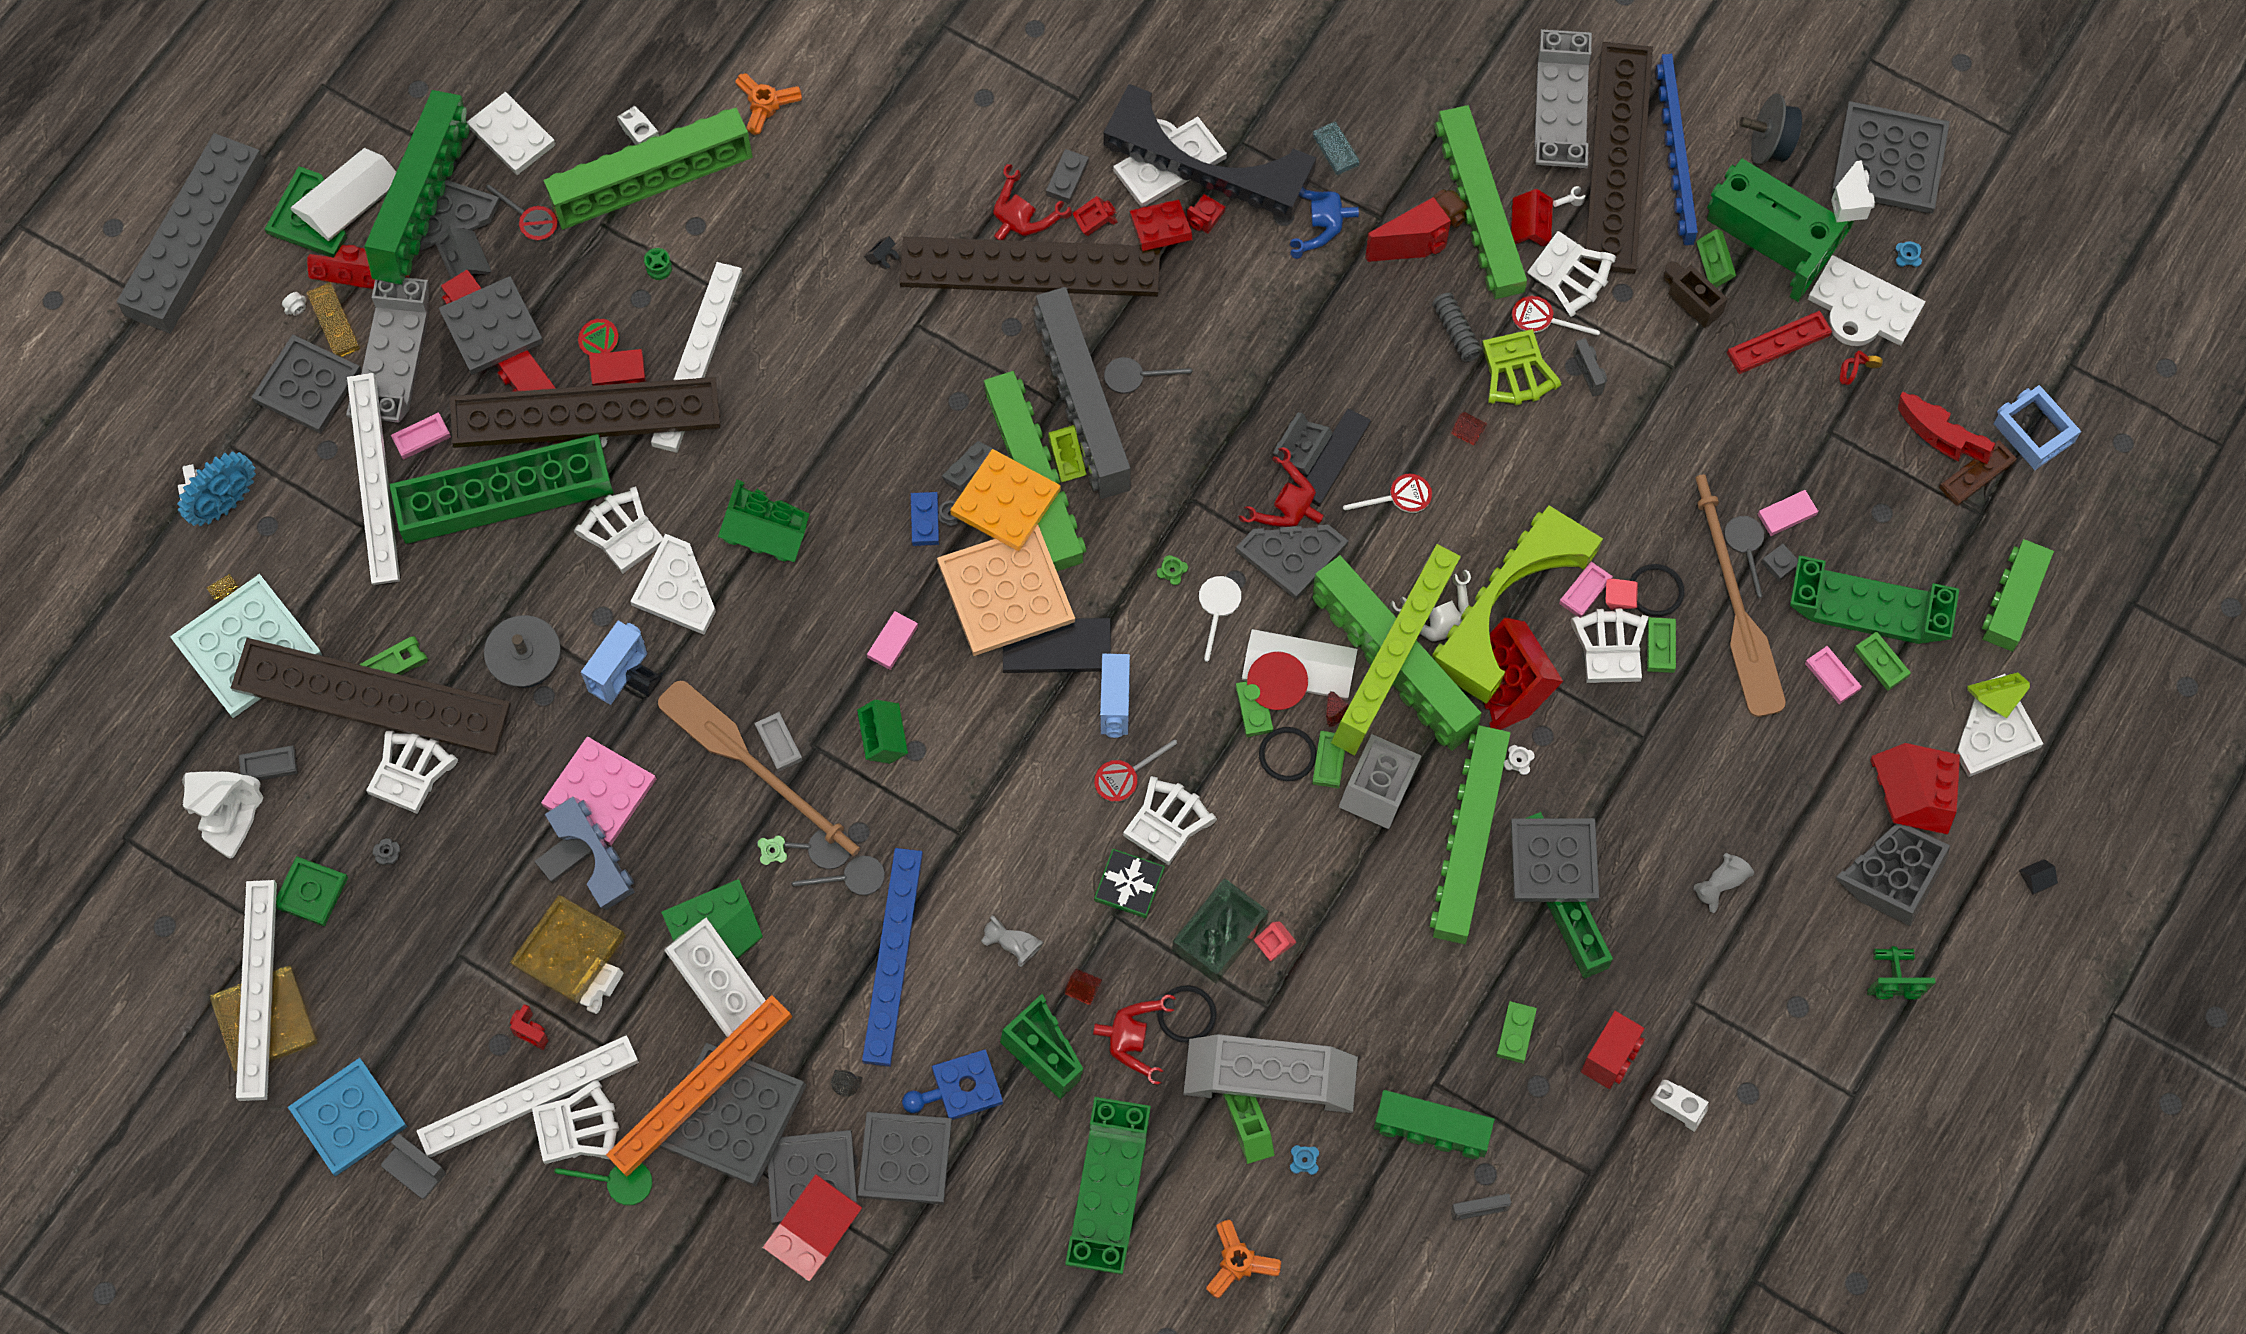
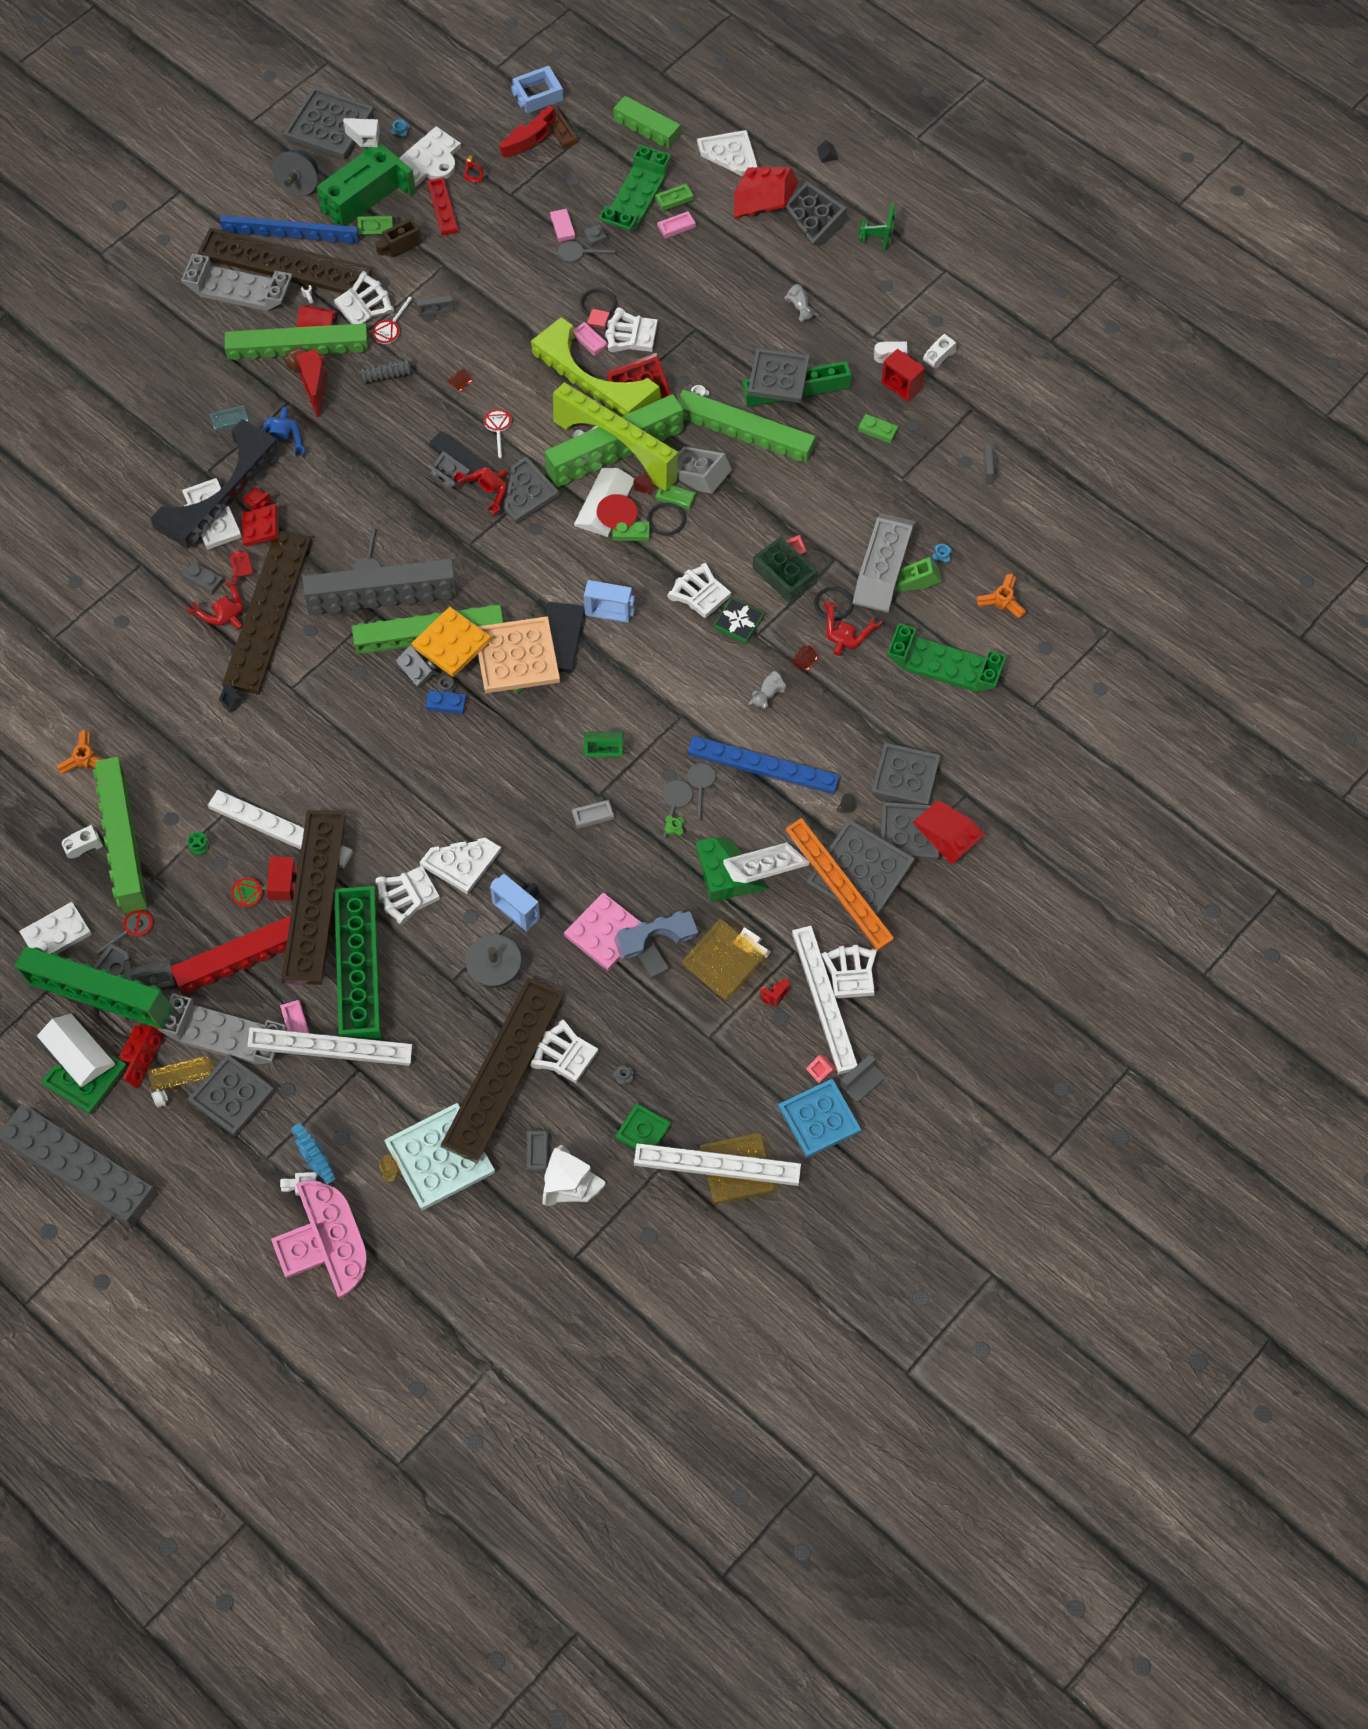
camera: 80 degrees left, 5 degrees down
(117, 533) = (328, 1239): none -> bright pink plate
(392, 661) = (476, 1055): bright green plate -> none
(426, 1109) = (821, 1068): none -> coral slope
(491, 325) = (223, 953): dark grey plate -> none
(622, 1188) = (894, 951): green piece -> none
(722, 737) = (582, 848): medium nougat piece -> none
(763, 524) = (426, 799): green wedge -> none
(892, 640) = (533, 734): bright pink tile -> none
(955, 1100) = (856, 743): blue plate -> none
(1042, 1048) = (847, 681): green wedge -> none
(1066, 453) = (420, 605): lime slope -> none
(1118, 780) = (663, 617): piece -> none
(1175, 563) = (520, 556): bright green plate -> none
(1220, 598) = (547, 539): white piece -> none
(1434, 1124) = (933, 477): green brick -> none
(1512, 353) = (413, 342): lime plate -> none
(1661, 645) = (638, 305): bright green plate -> none
(1664, 1032) = (885, 349): none -> white leg
(1748, 643) = (644, 262): medium nougat piece -> none
(2001, 693) = (710, 140): lime slope -> none

